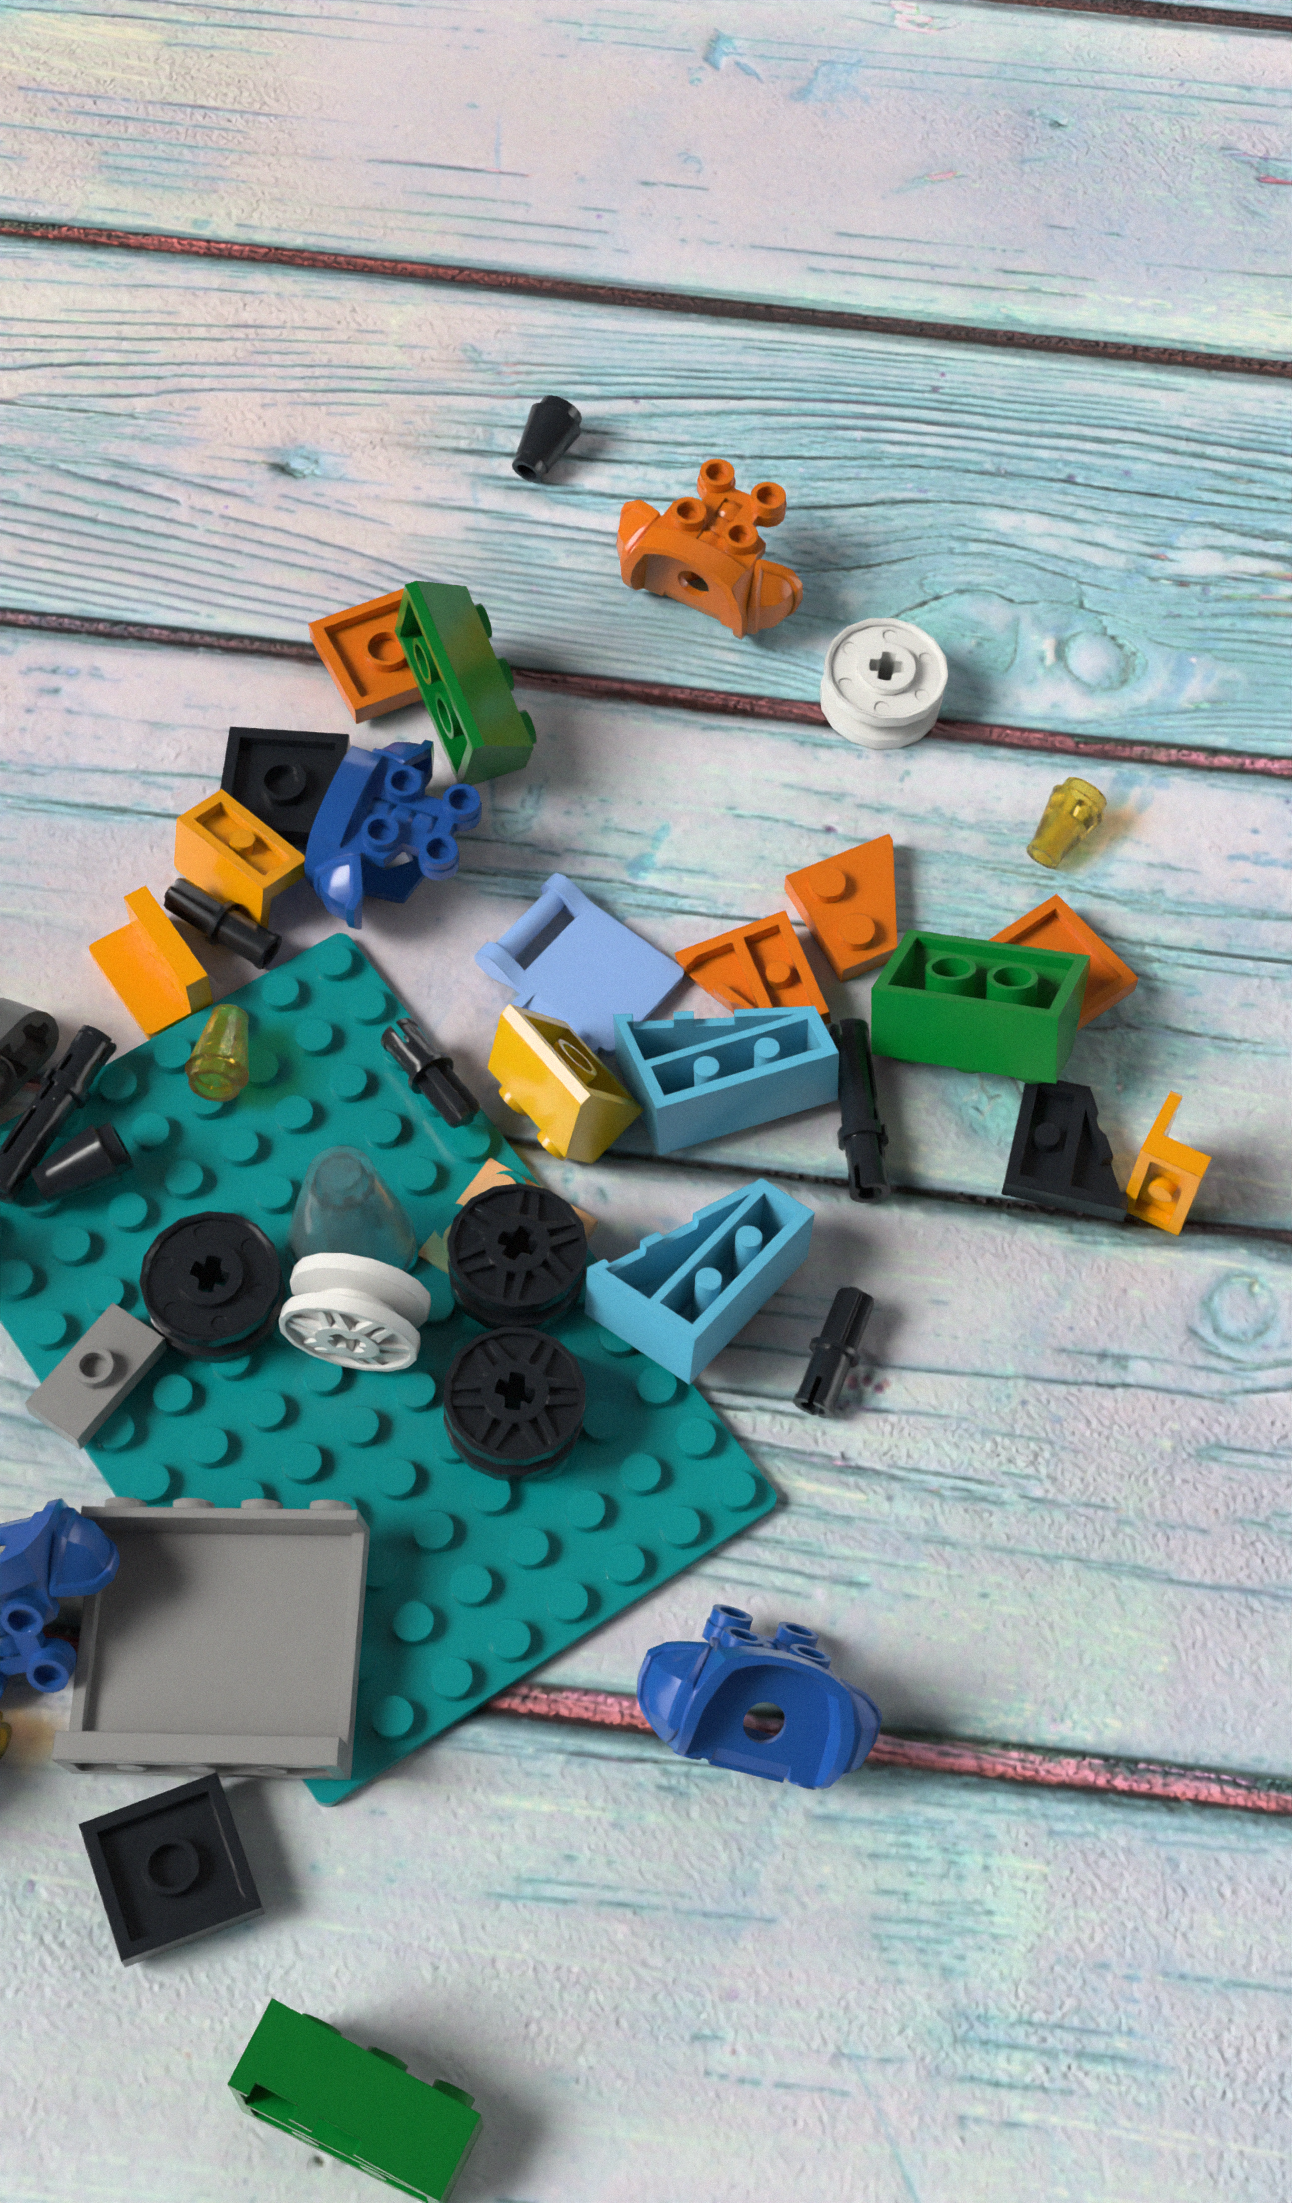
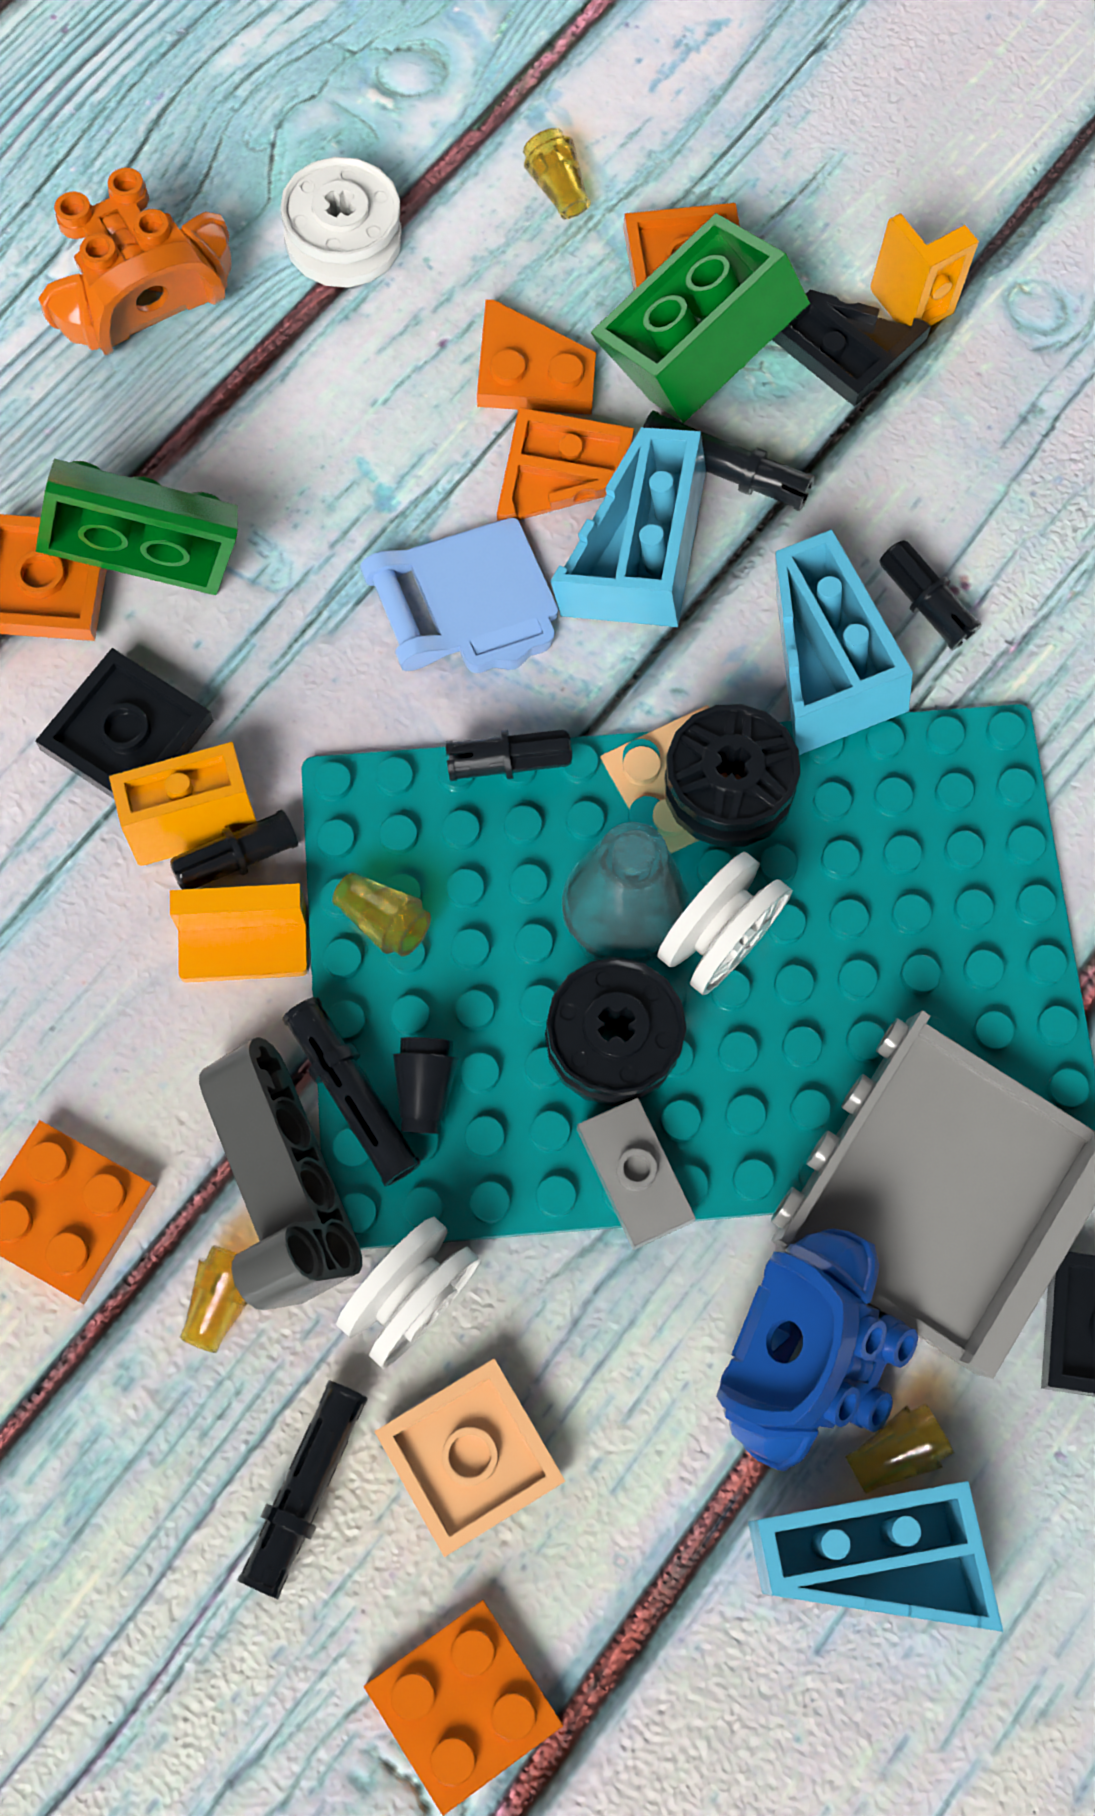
camera: 60 degrees left, 10 degrees up
(373, 816) = (243, 661): blue piece -> none
(522, 1366) = (853, 814): black wheel -> none
(559, 1085) = (588, 661): yellow slope -> none

